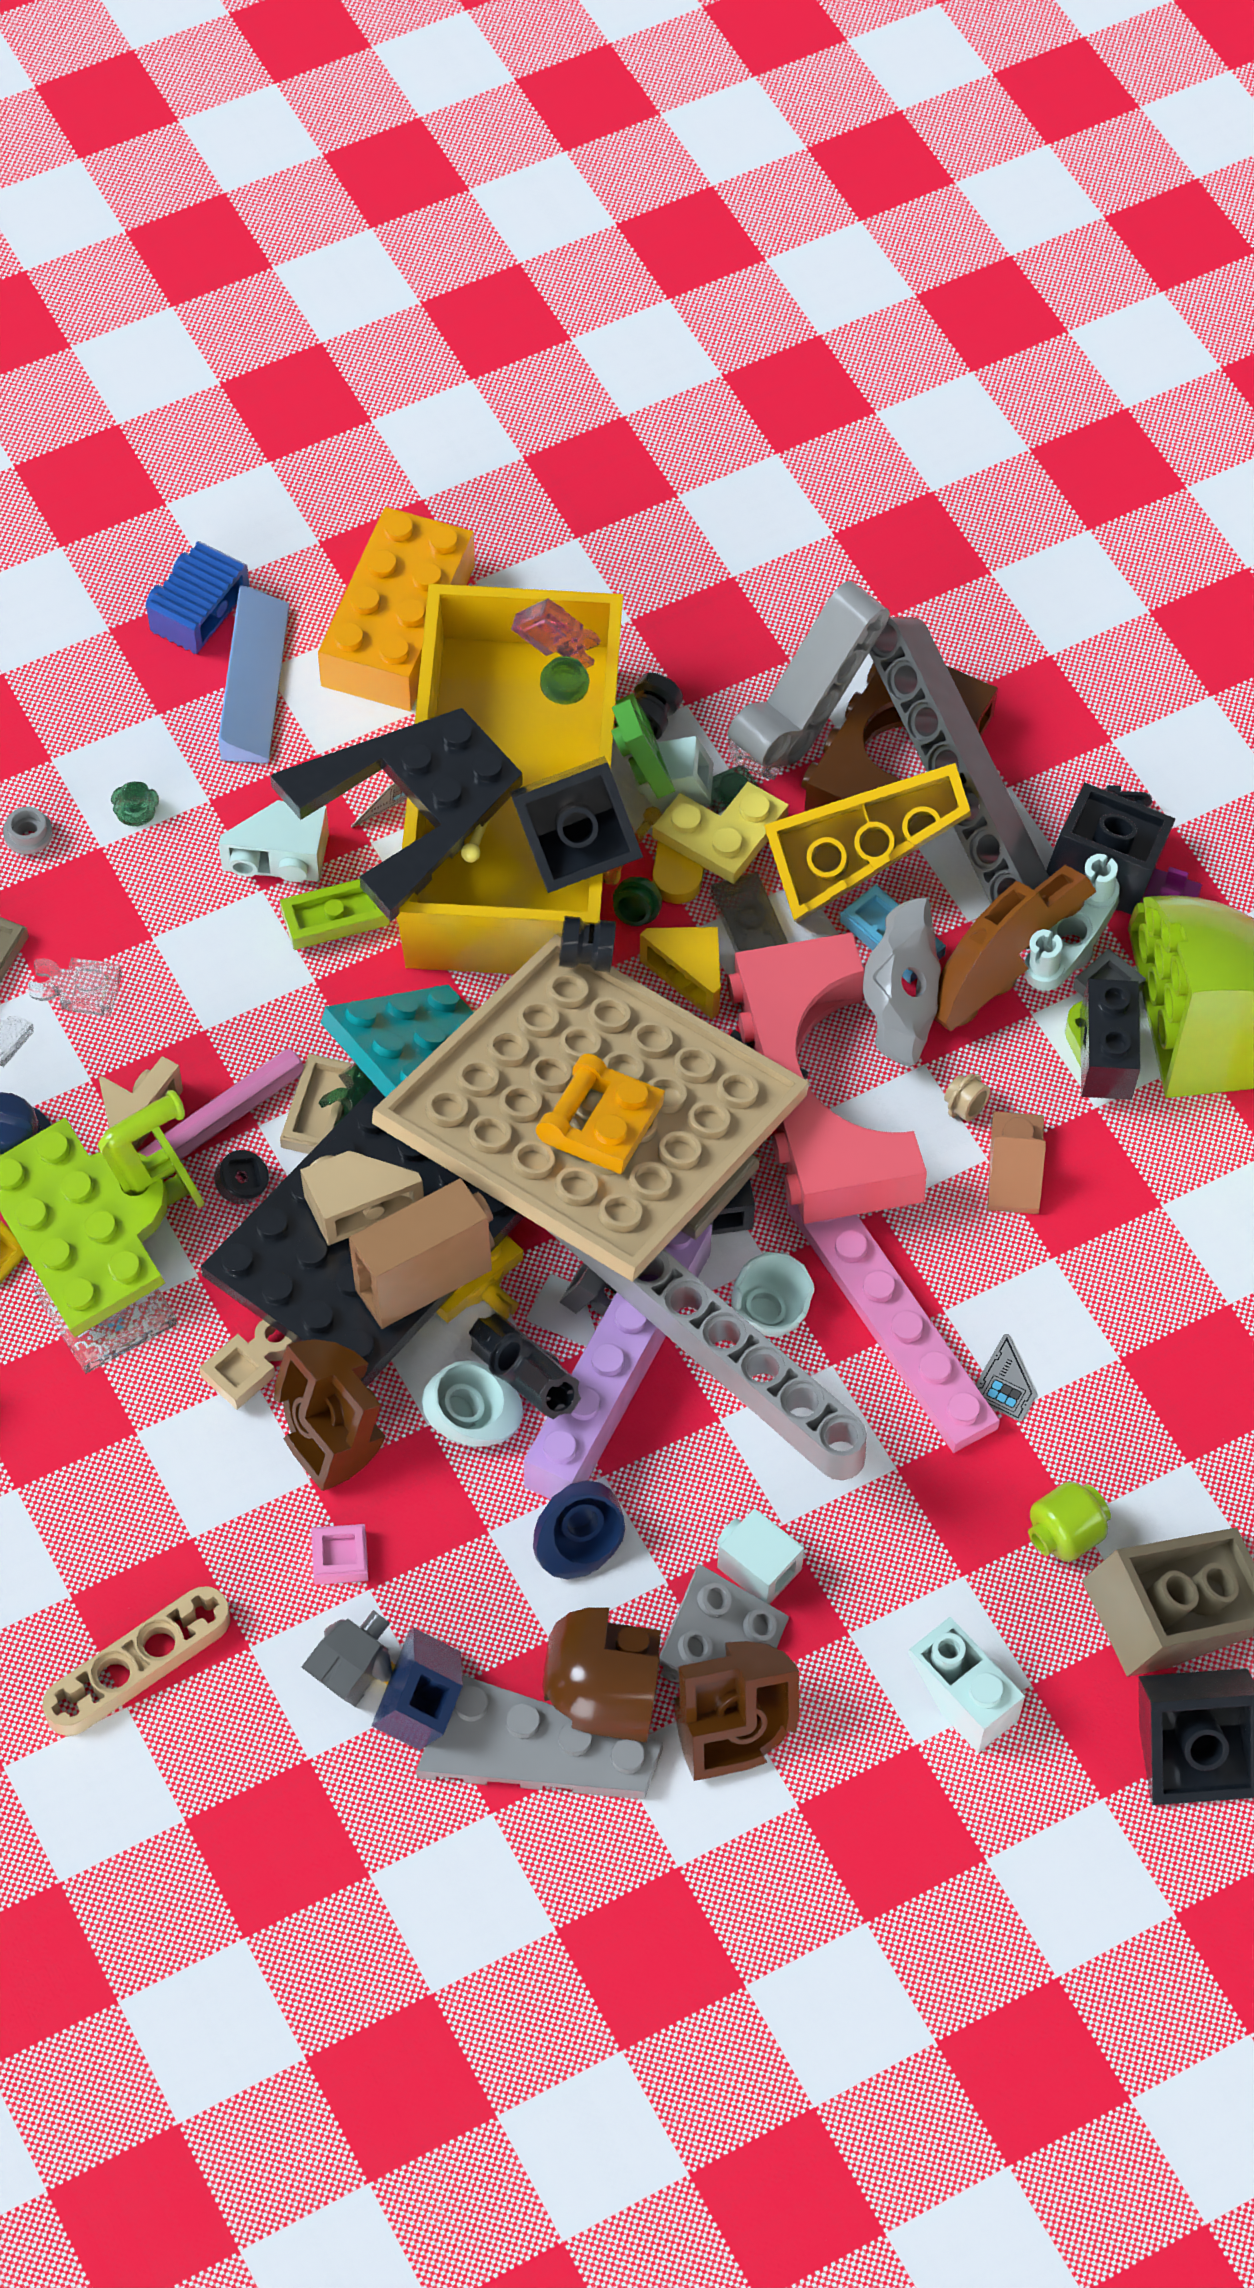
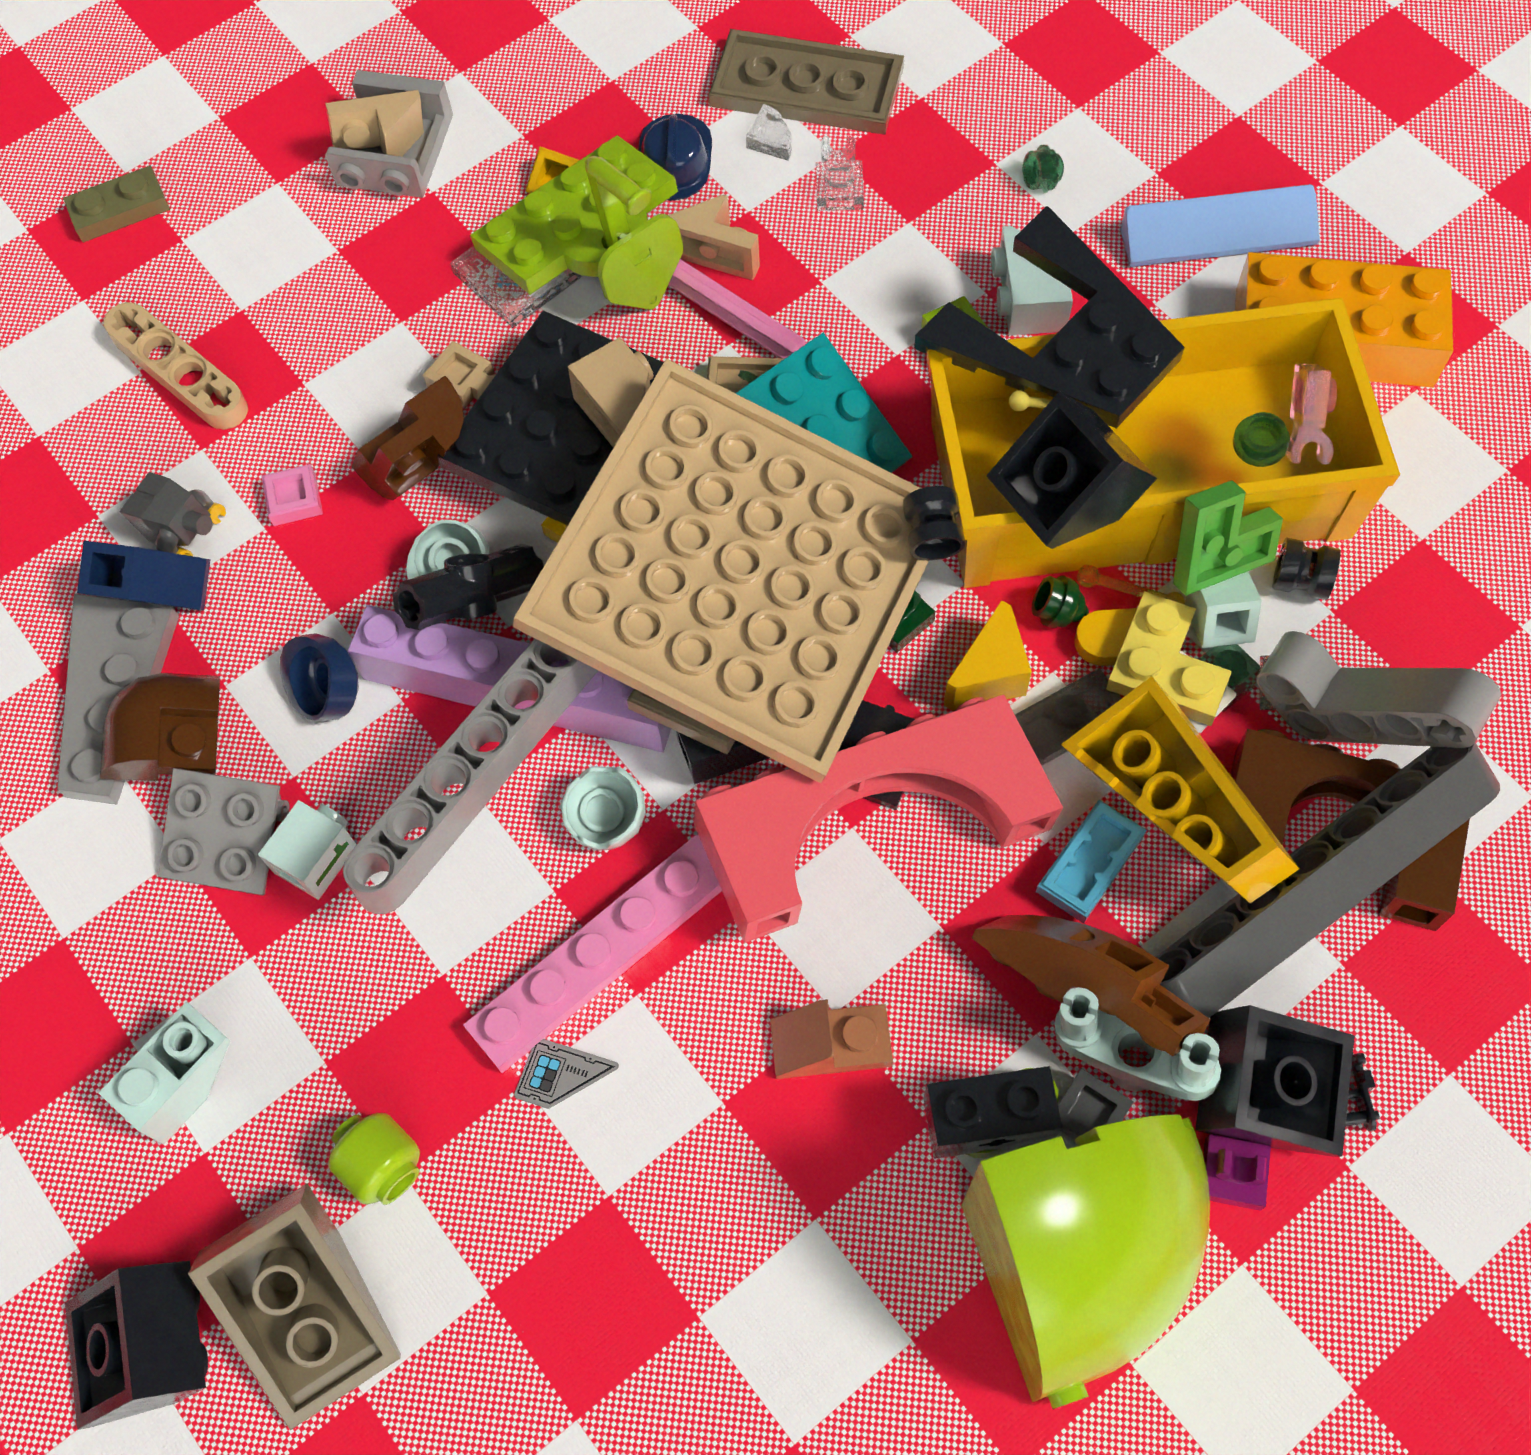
camera: 85 degrees right, 5 degrees up
(25, 820) = (989, 100): light grey plate -> none
(196, 596) = (1292, 156): blue brick -> none
(241, 1177) = (661, 334): black tile -> none
(422, 1252) = (536, 444): medium nougat brick -> none
(614, 1125) = (704, 578): light orange plate -> none
(736, 1708) = (125, 844): reddish brown brick -> none
(900, 1018) = (1056, 863): light grey piece -> none
(966, 1096) = (898, 973): tan plate -> none

